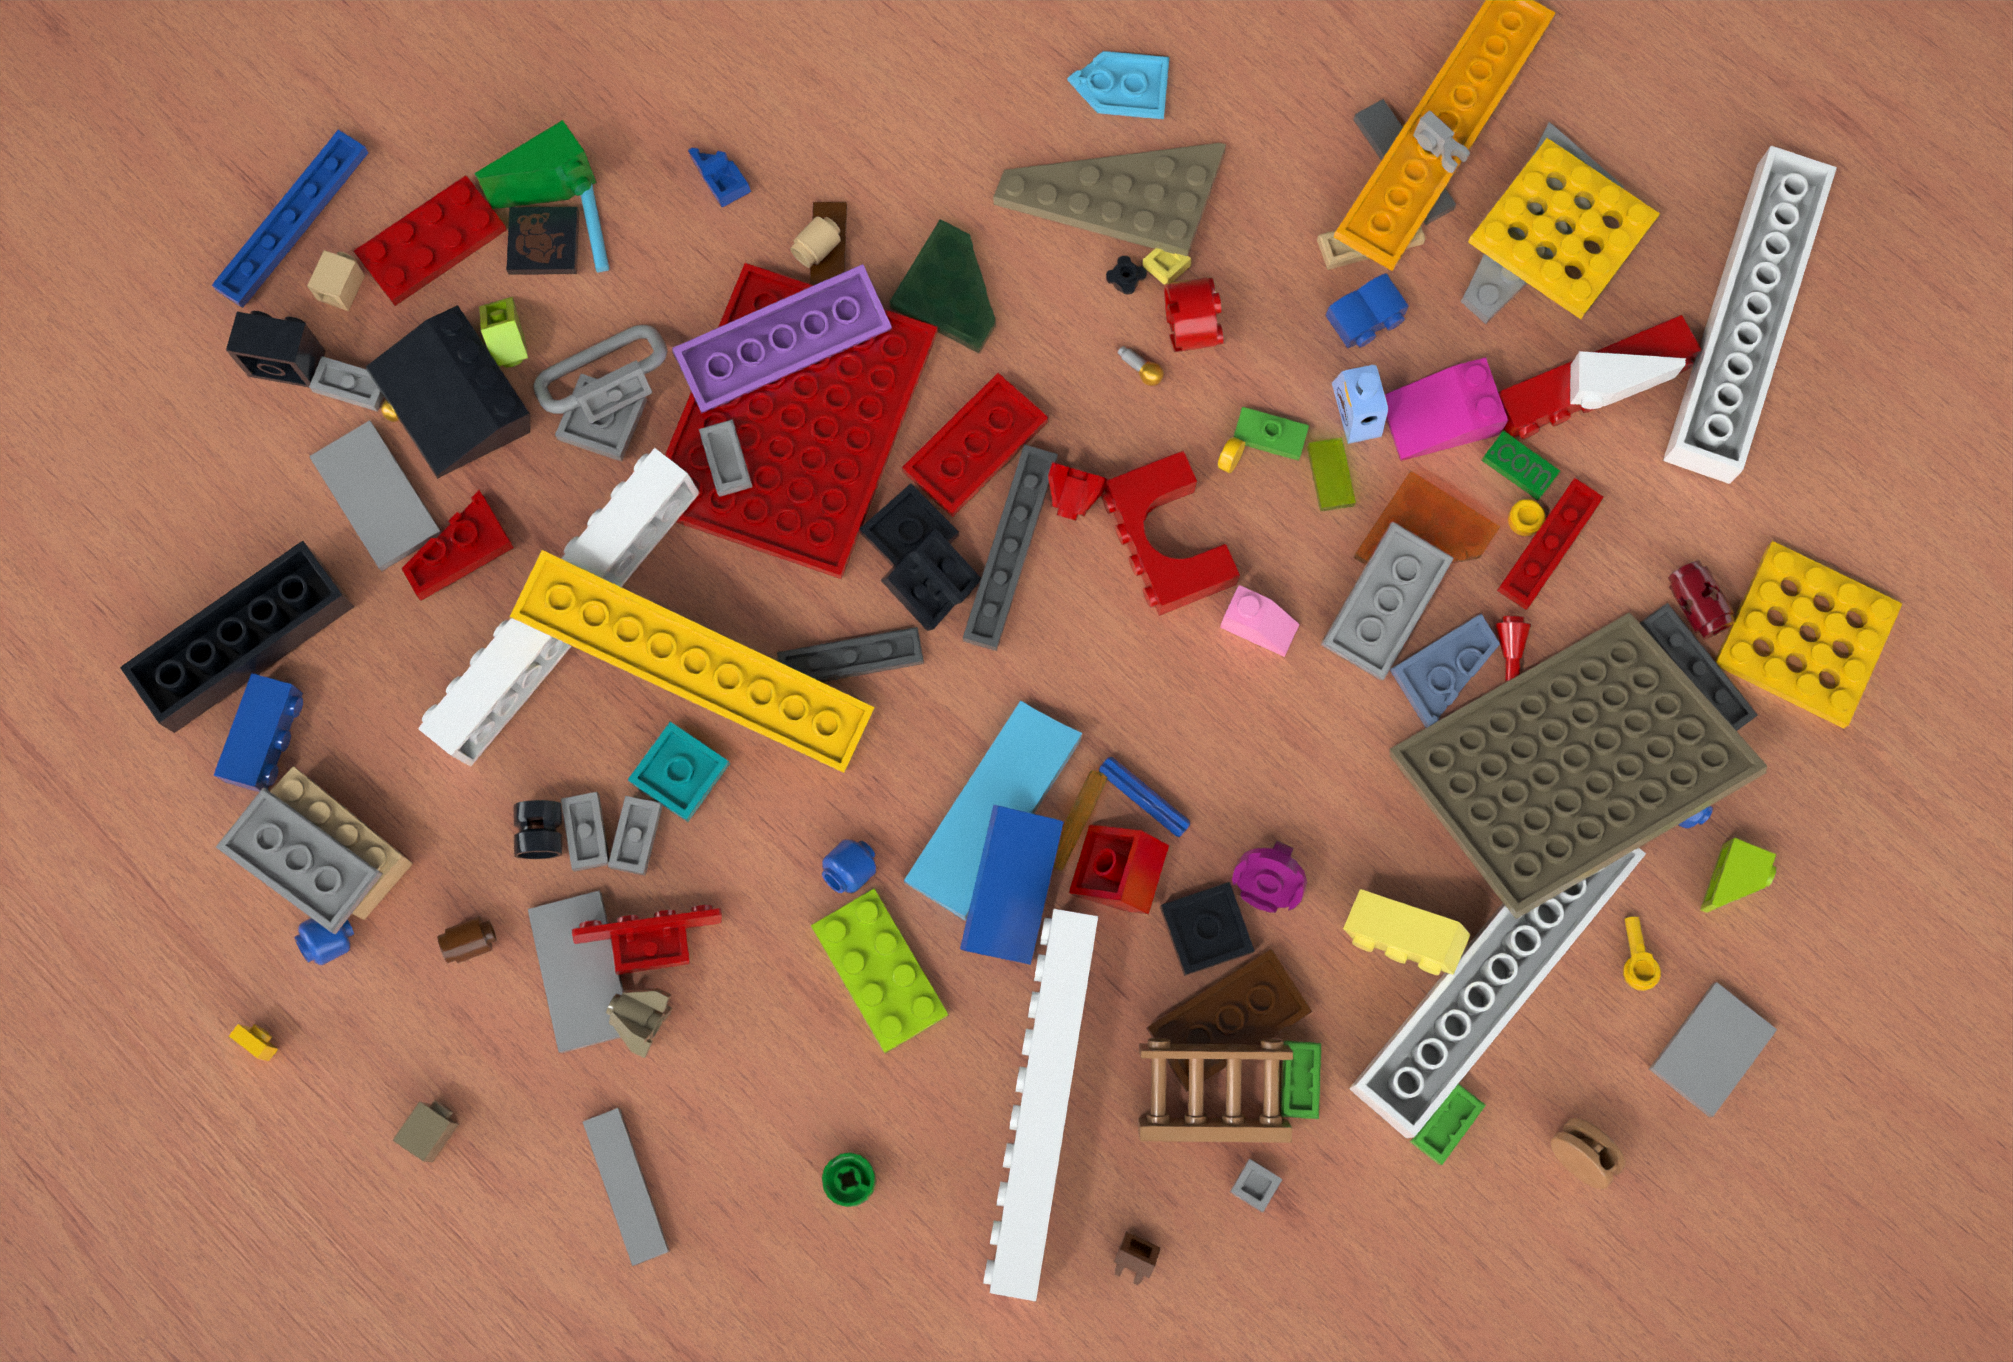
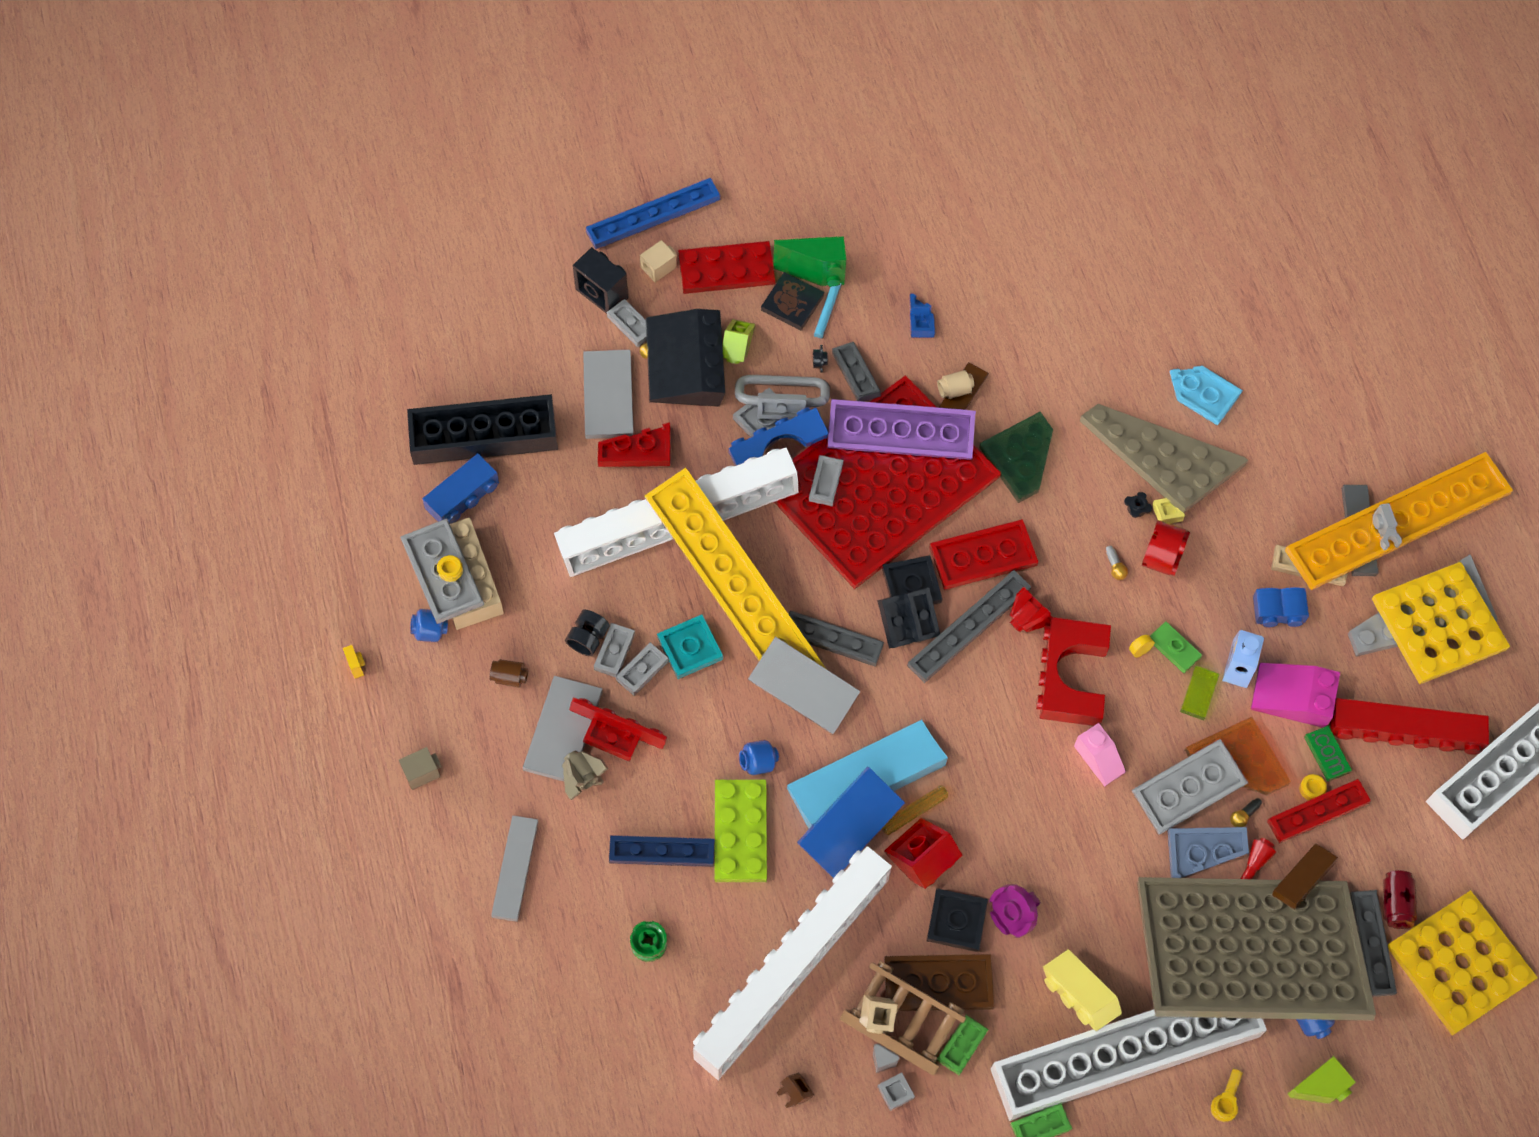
camera: 30 degrees right, 10 degrees down
(308, 853) = (449, 568): none -> yellow tile
(623, 299) = (820, 358): none -> black plate
(661, 405) = (805, 428): none -> blue arch
(680, 292) = (856, 372): none -> dark grey tile
(797, 1056) = (661, 851): none -> dark blue plate
(852, 742) = (804, 685): none -> light grey tile
(1144, 797) = (965, 820): blue axle -> none
(1187, 1110) = (878, 1014): none -> tan brick
(1218, 1154) = (884, 1058): none -> light grey slope
(1465, 605) = (1241, 817): none -> piece
(1580, 635) = (1304, 876): none -> reddish brown tile
(1610, 377) = (1417, 728): white slope -> none

